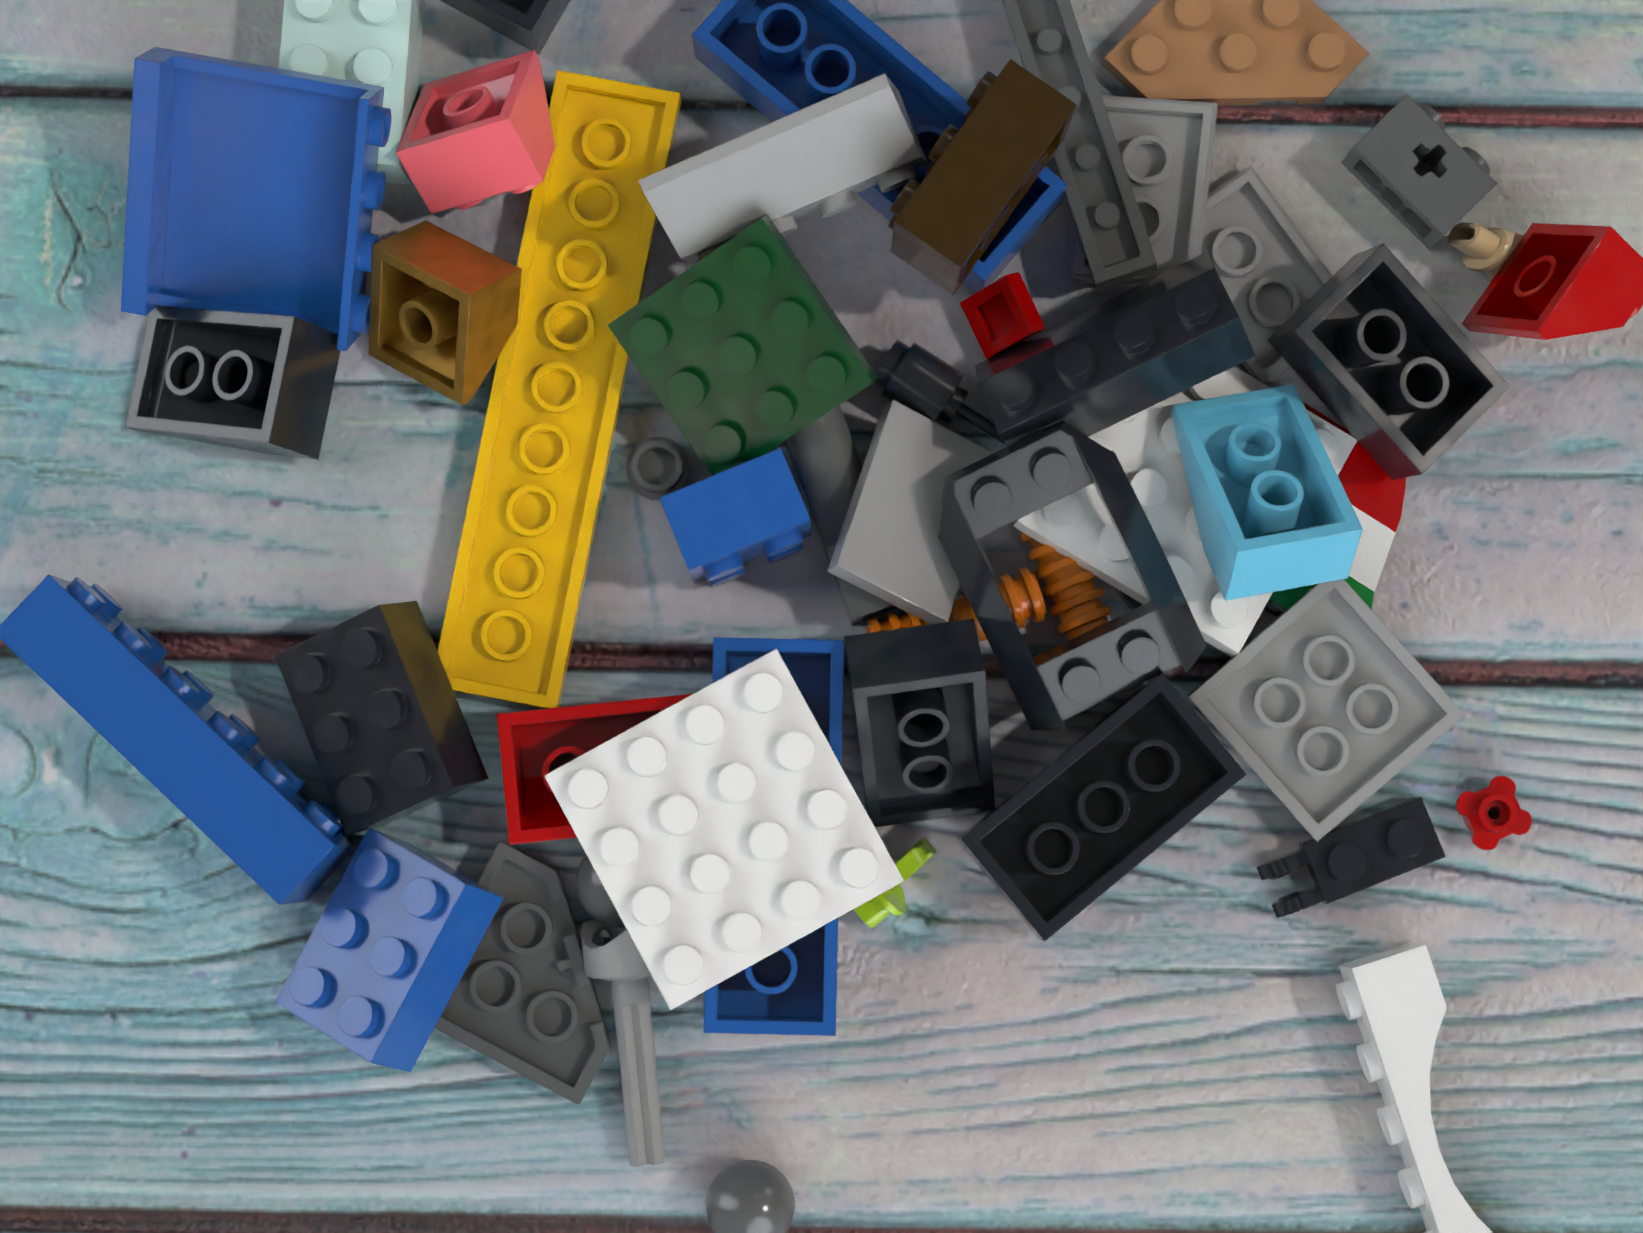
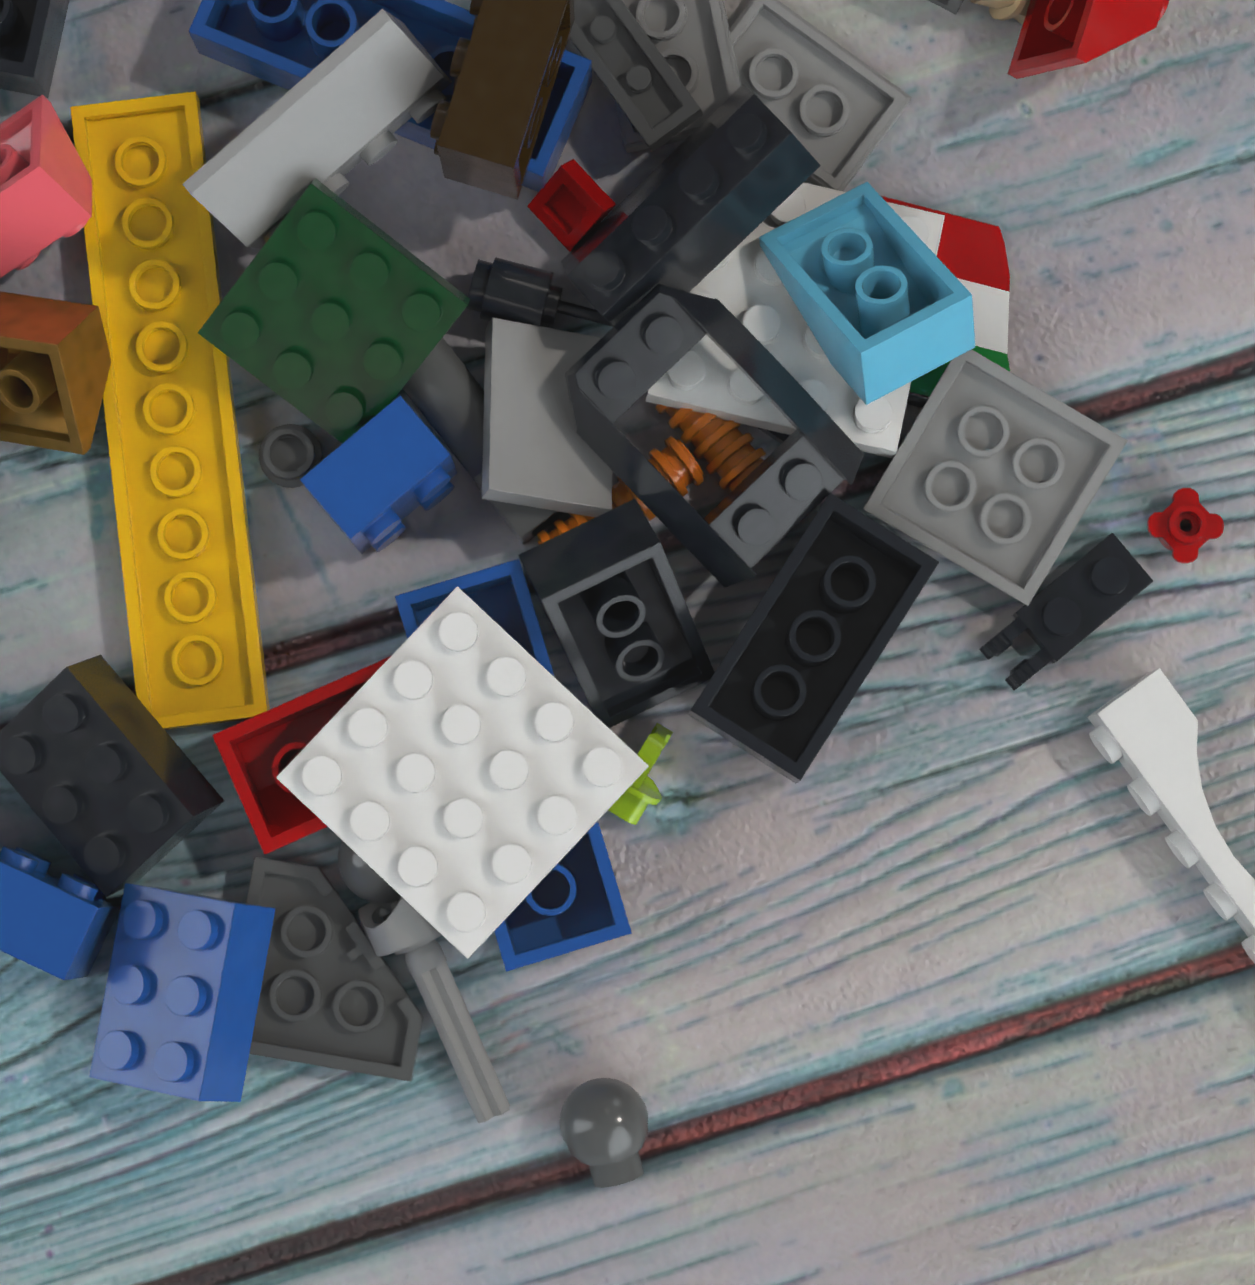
camera: 20 degrees left, 0 degrees up
(1389, 363) = (949, 132): black brick -> none

